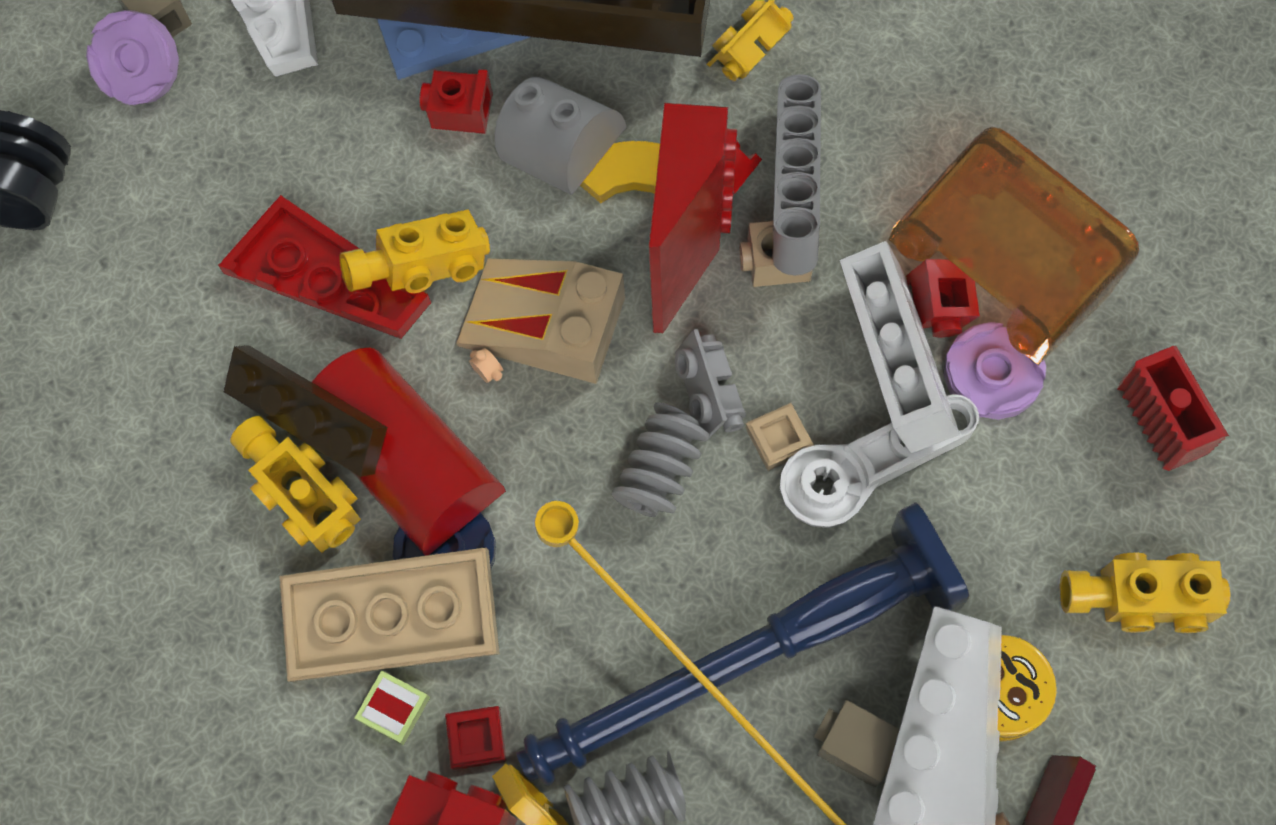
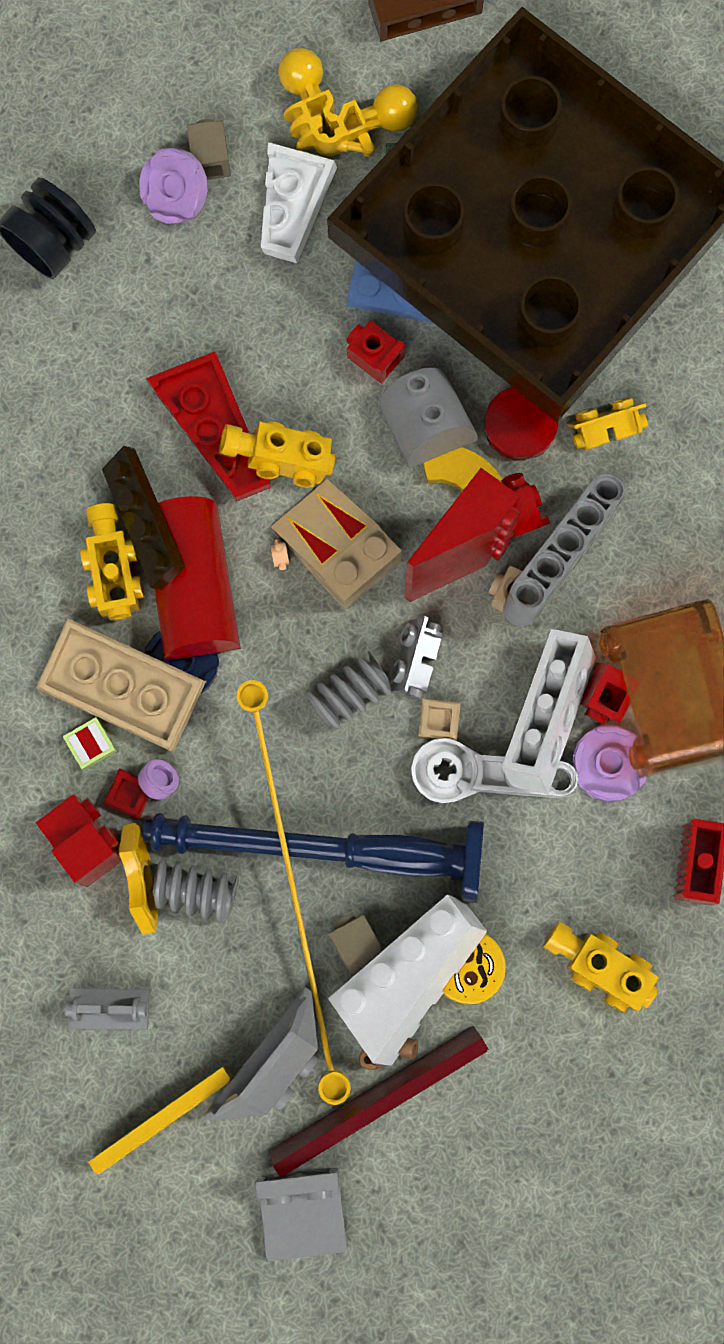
camera: 30 degrees right, 10 degrees up
(501, 697) = (158, 779): none -> lavender tile
(657, 78) = (518, 426): none -> red tile

